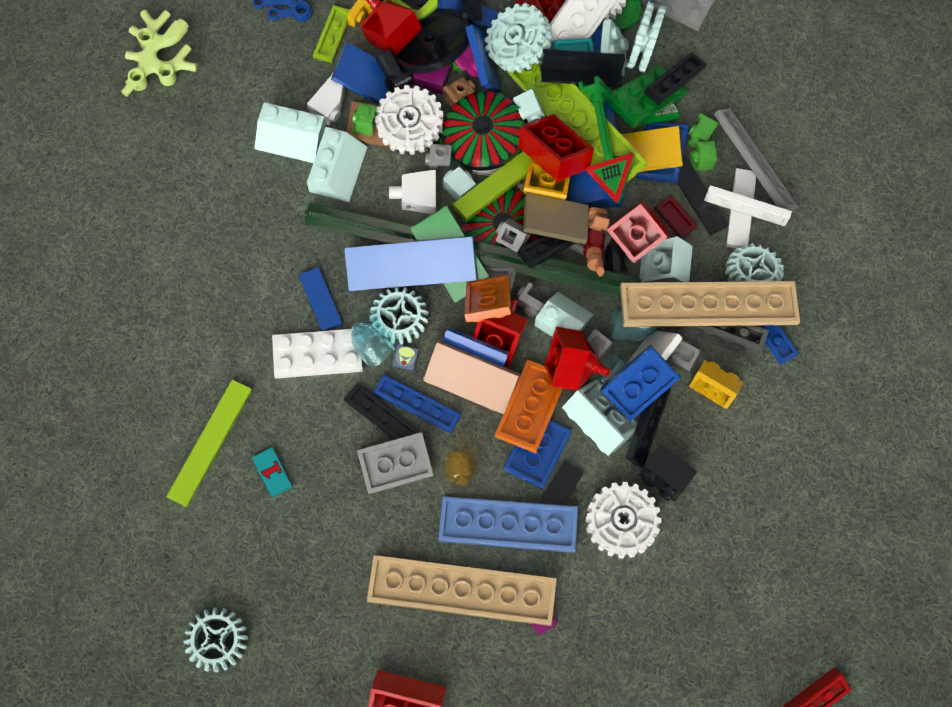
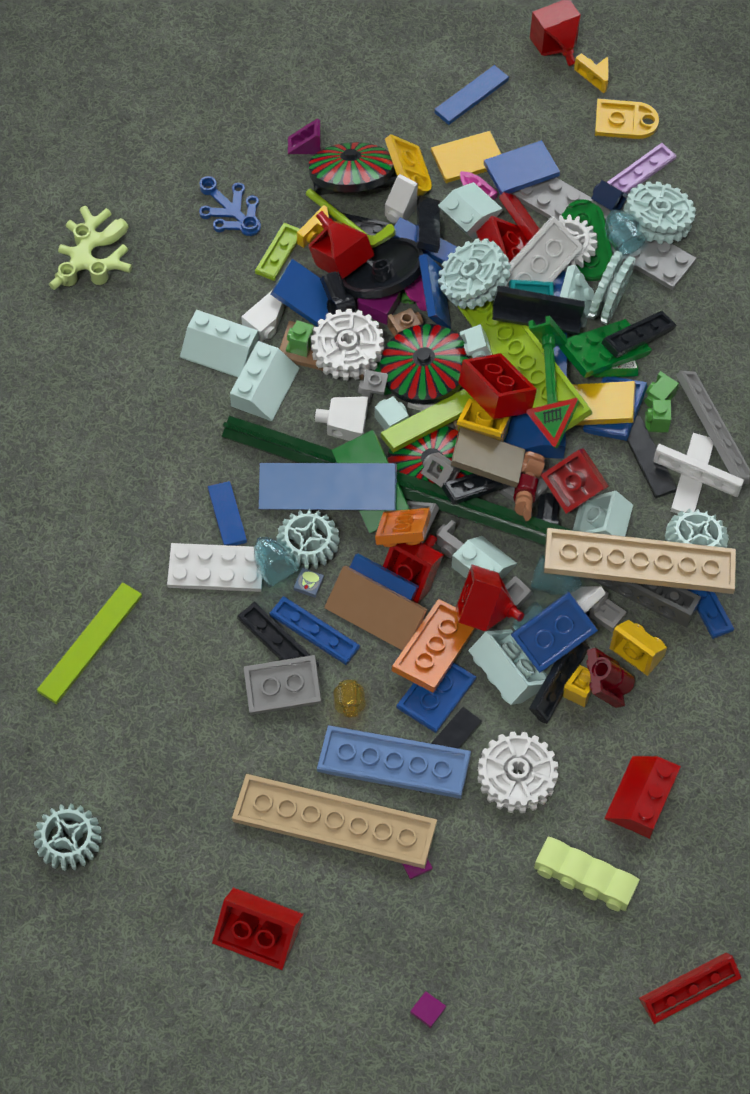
camera: 10 degrees right, 10 degrees down
(272, 472) = (151, 680): teal tile -> none
(667, 473) = (571, 728): black brick -> none
(670, 427) = (577, 687): none -> yellow slope
(675, 217) = (620, 475): dark red tile -> none
(694, 419) = (608, 679): none -> dark red plate
(700, 611) = (586, 873): none -> yellowish green brick
(739, 526) = (642, 794): none -> red slope

